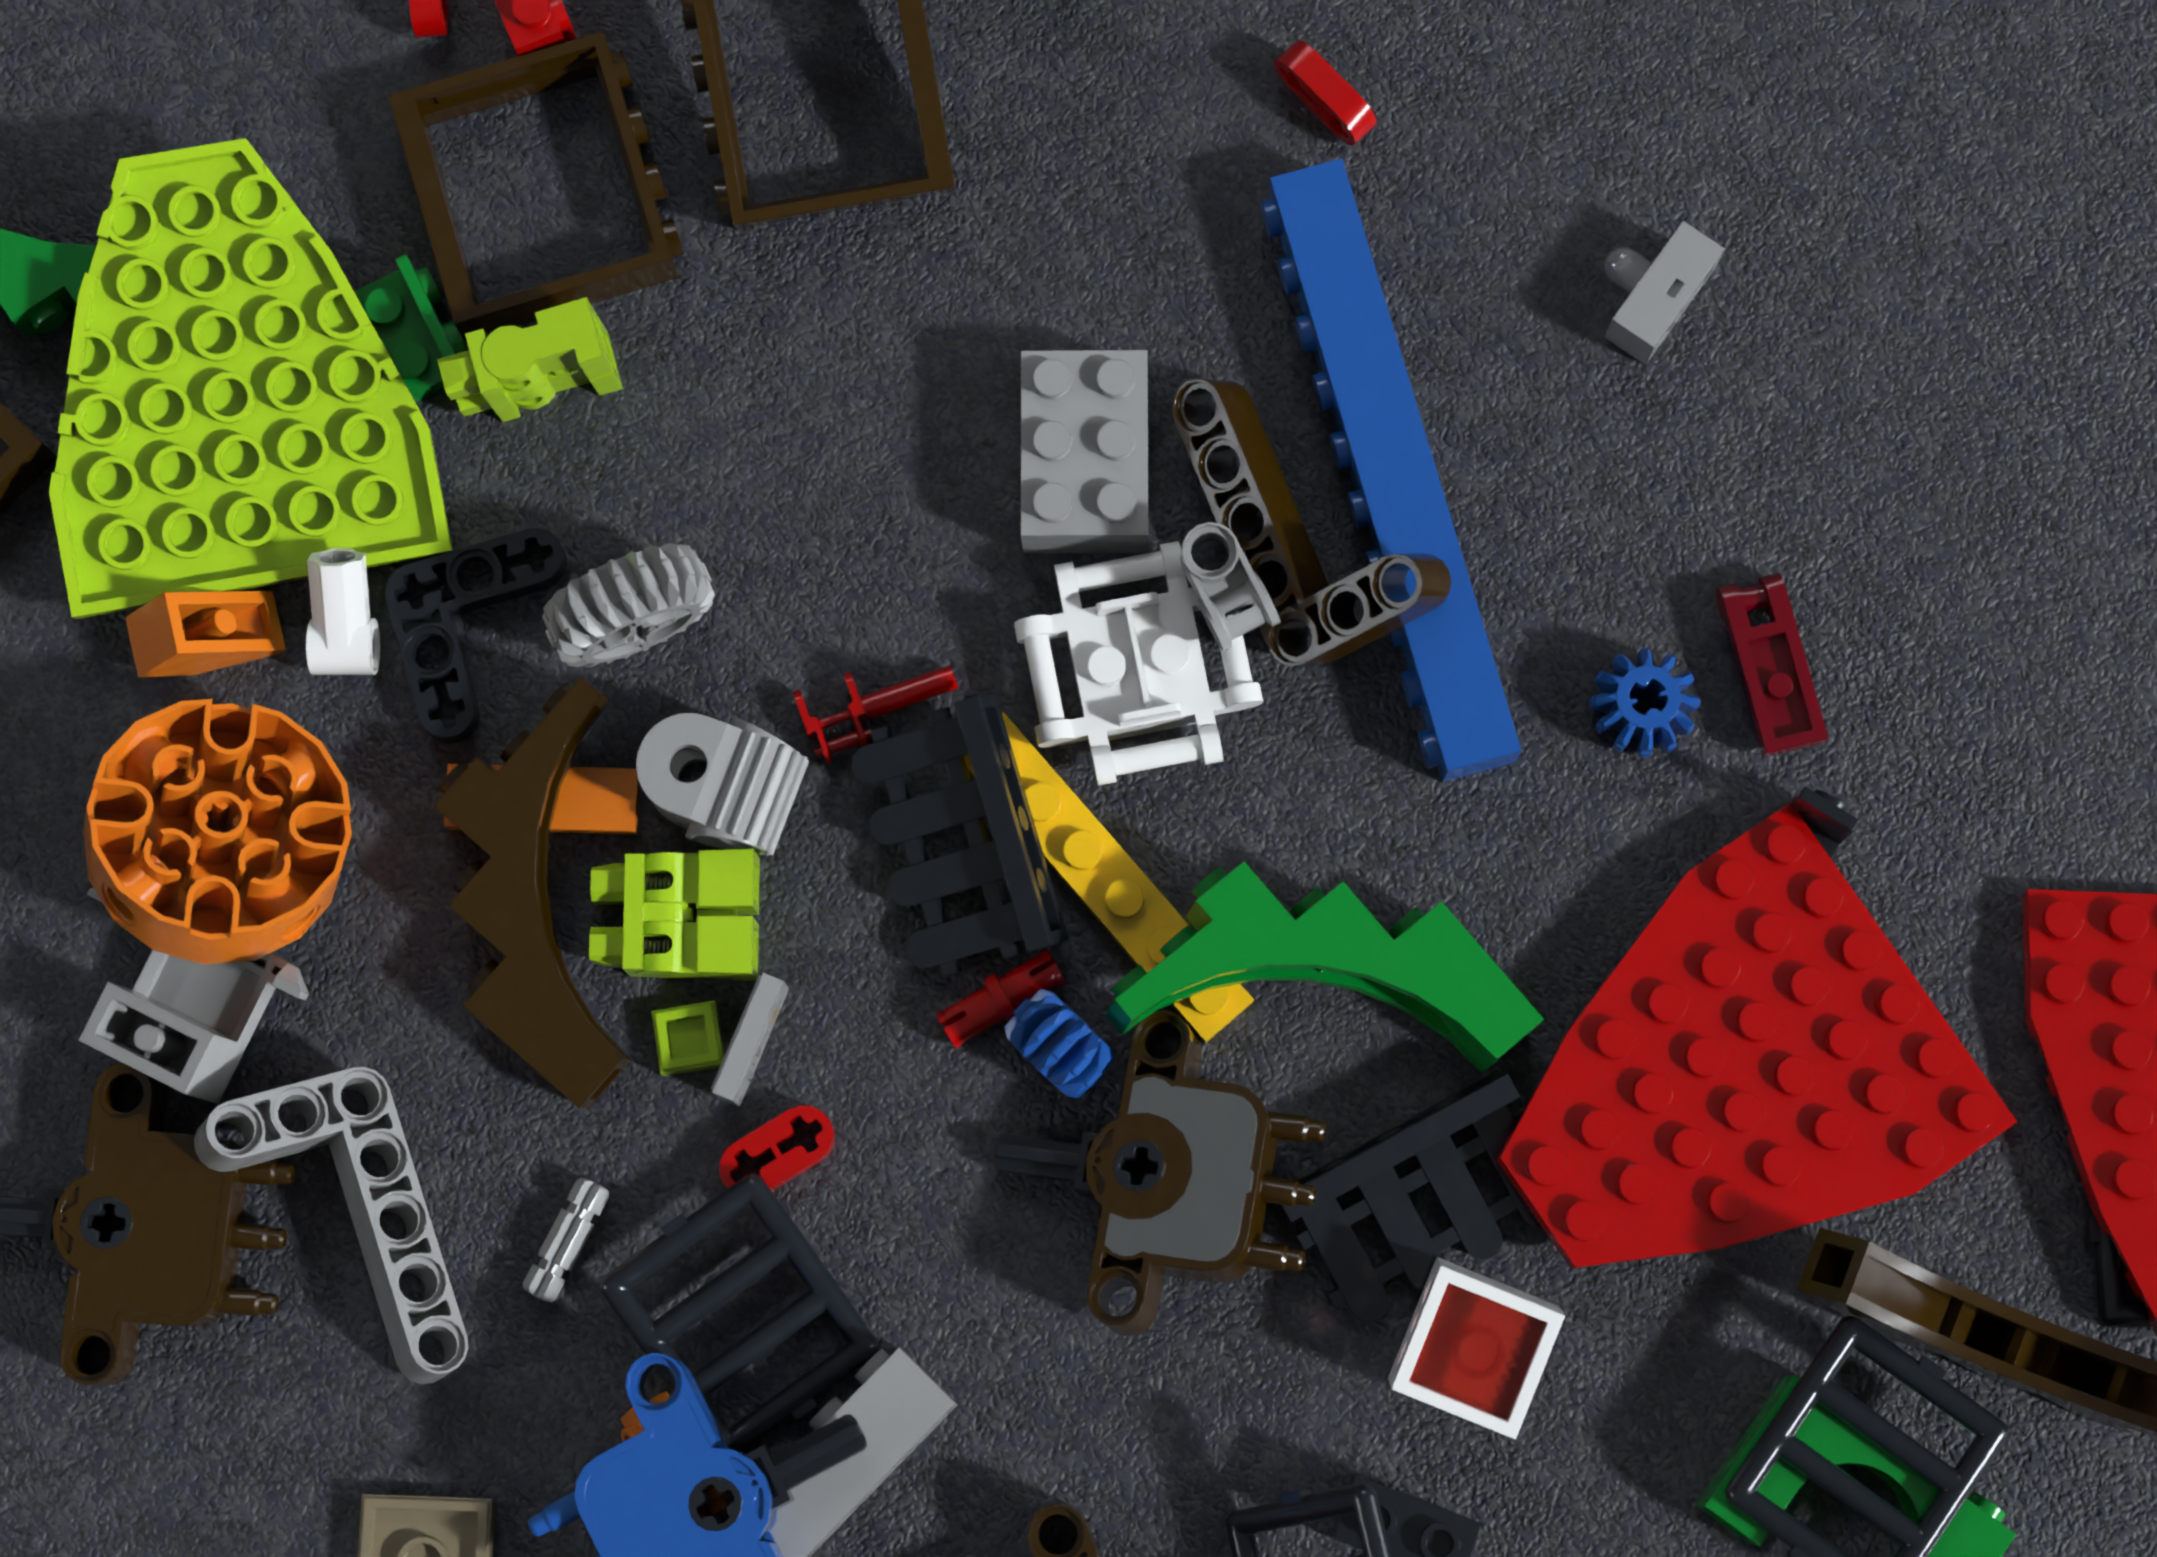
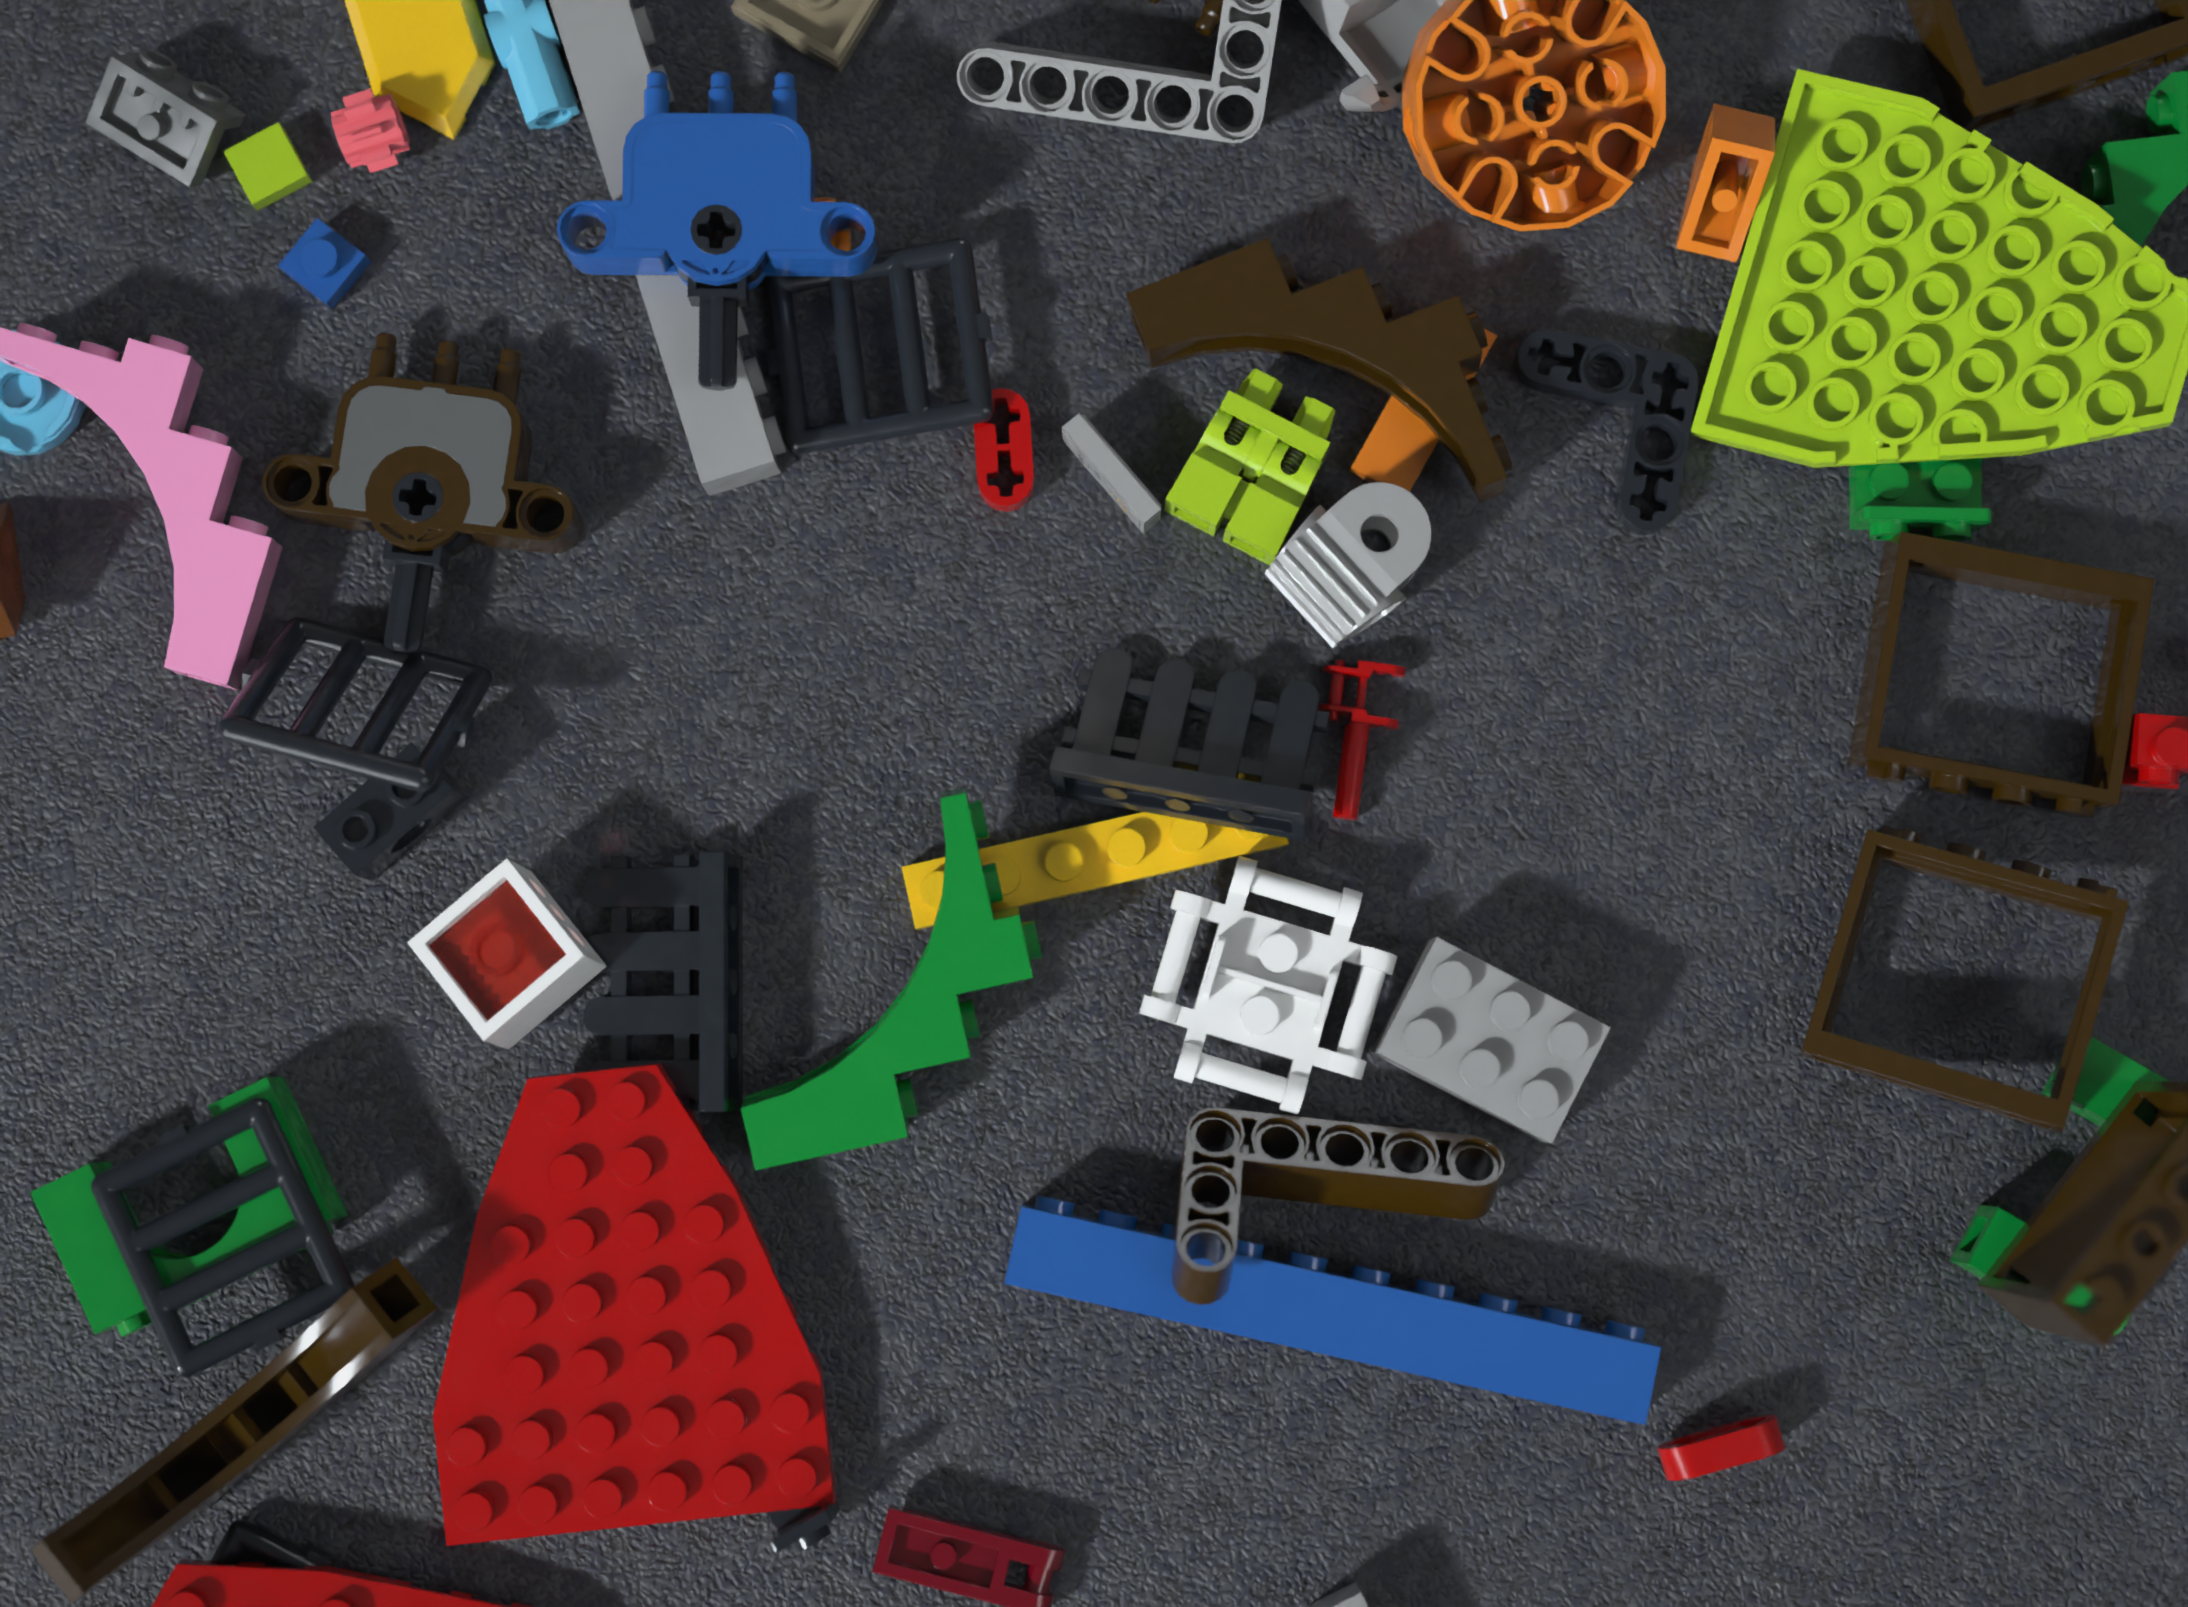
camera: 115 degrees right, 5 degrees up
(341, 633) = (1669, 300): white piece -> none
(533, 363) = (1825, 582): lime hips -> none
(565, 1240) = (1024, 234): light grey axle -> none
(628, 605) = (1554, 555): light grey gear -> none
(688, 1038) = (1144, 424): lime tile -> none
(999, 998) = (1033, 708): red pin -> none
(1059, 1043) = (963, 734): blue gear -> none
(1211, 1183) = (769, 800): piece -> none
(1227, 588) = (1287, 1094): light grey piece -> none
(1632, 682) = (1014, 1428): blue gear -> none

